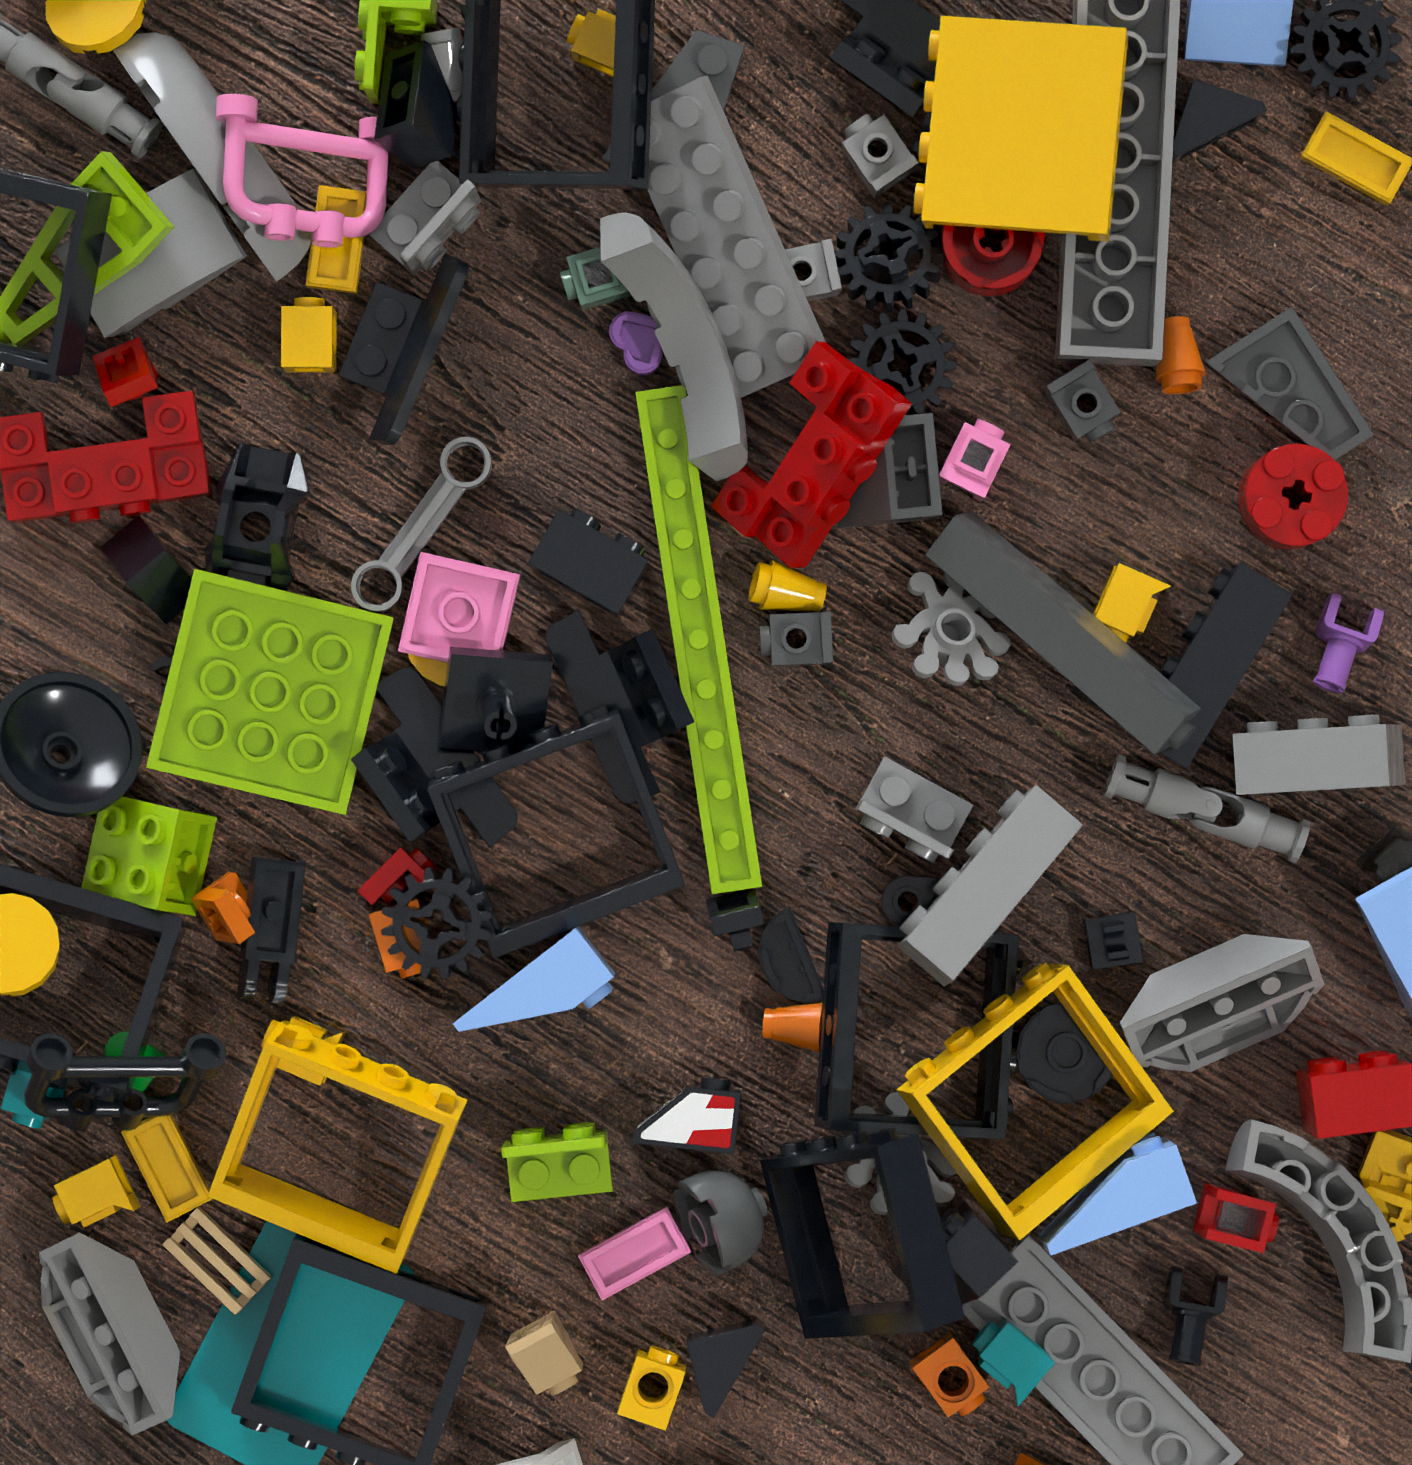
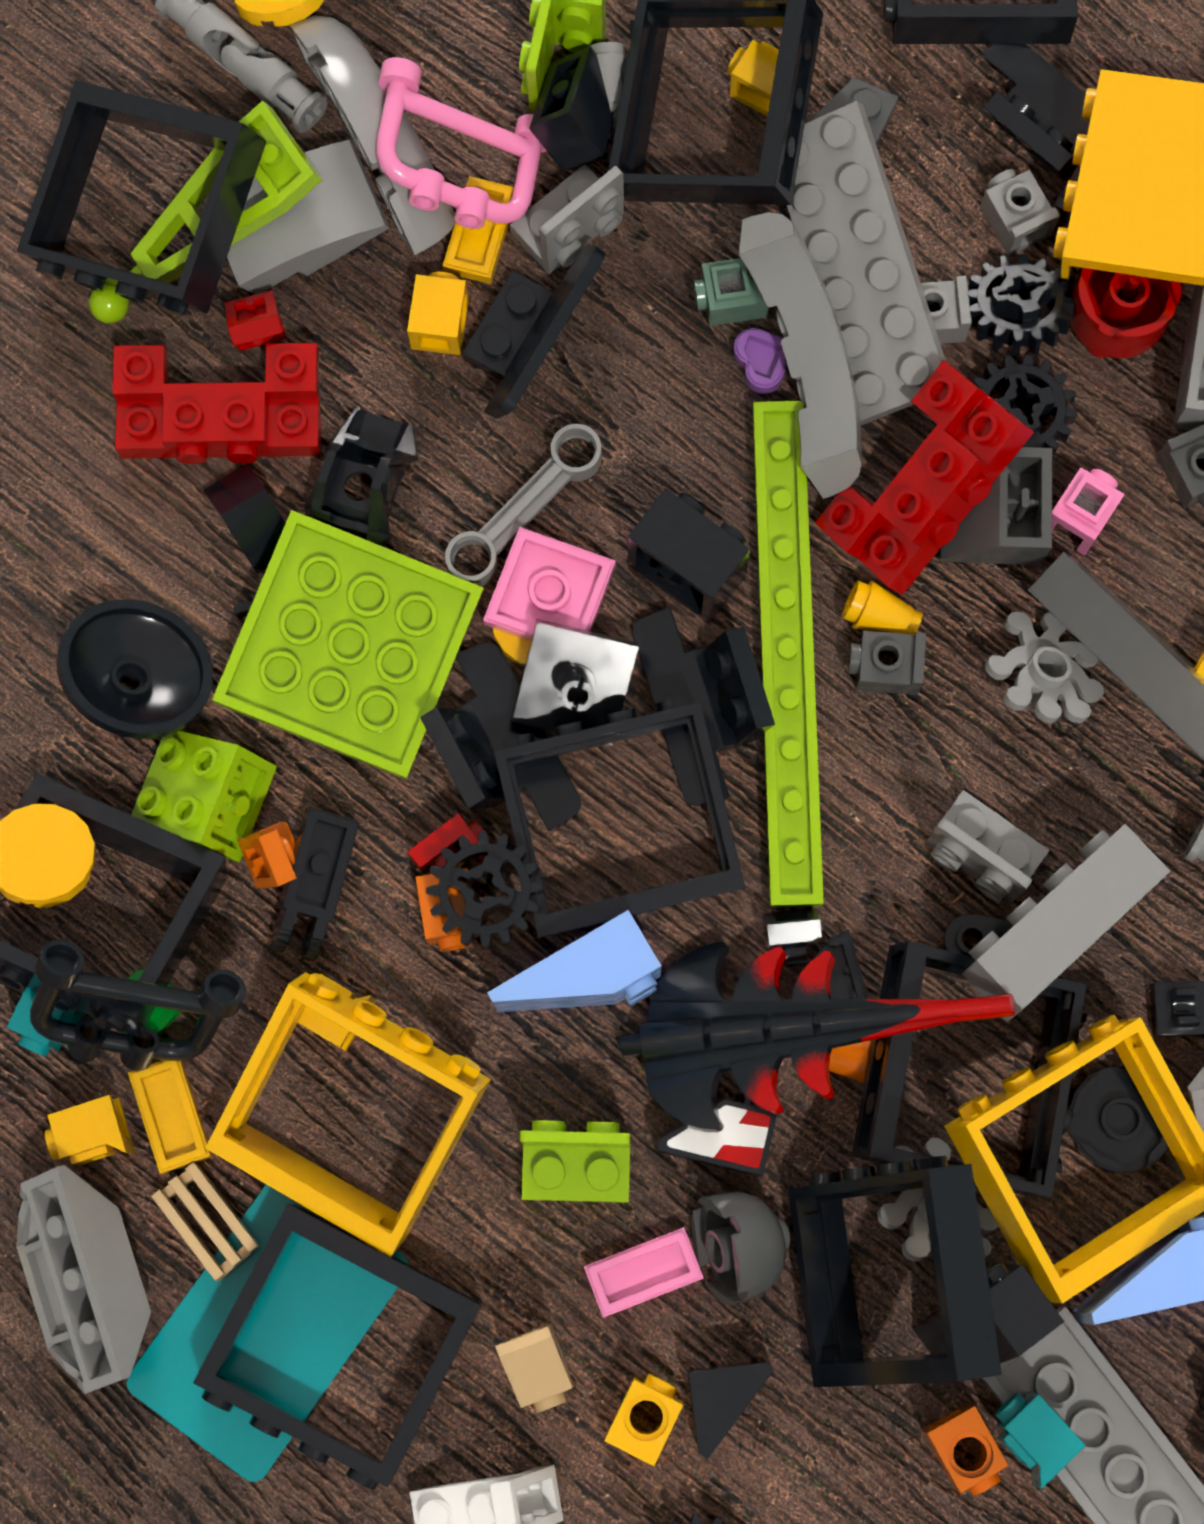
camera: 10 degrees right, 10 degrees down
(659, 1029) = (700, 1034): none -> black animal

